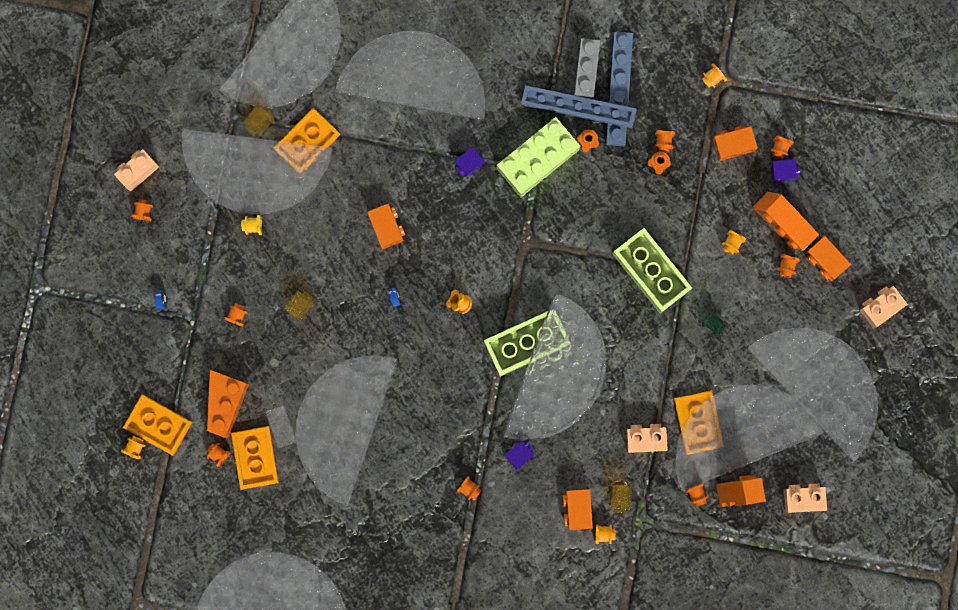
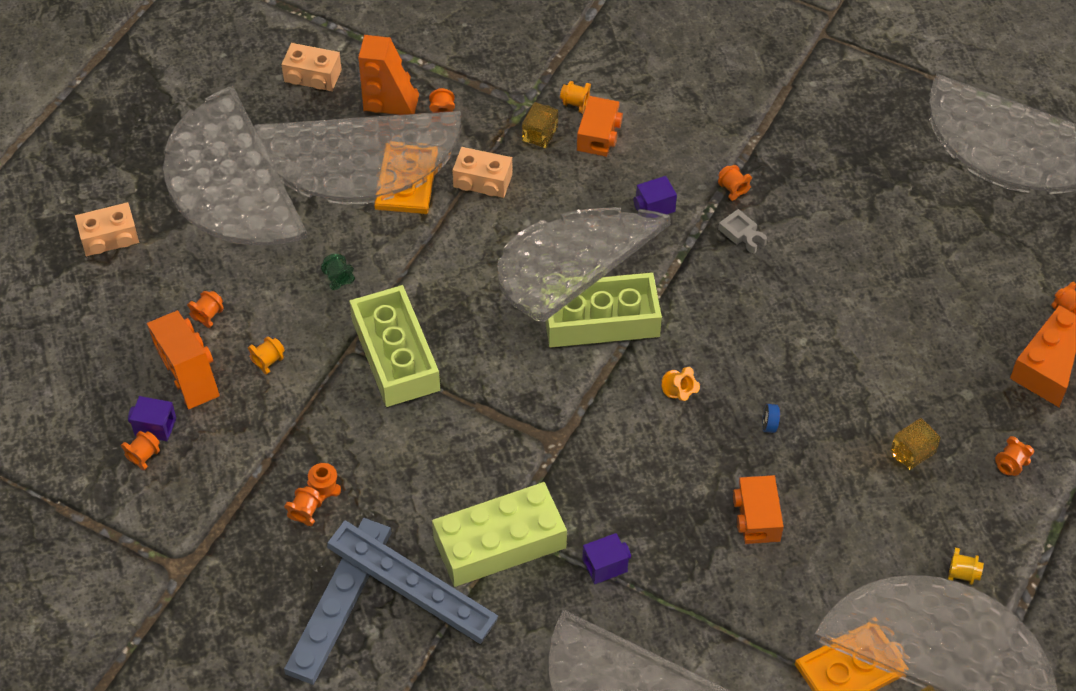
camera: 170 degrees left, 30 degrees down
(255, 457) = (1018, 291): light orange tile -> none
(281, 427) = (973, 315): clear tile -> none
(339, 422) = (887, 302): clear plate -> none
(454, 448) = (741, 228): none -> light grey plate
(587, 68) = (377, 633): light grey brick -> none
(588, 145) = (415, 540): orange brick -> none
(713, 76) = (191, 568): light orange brick -> none
(734, 143) = (204, 472): orange brick -> none
(827, 259) = (149, 296): orange brick -> none

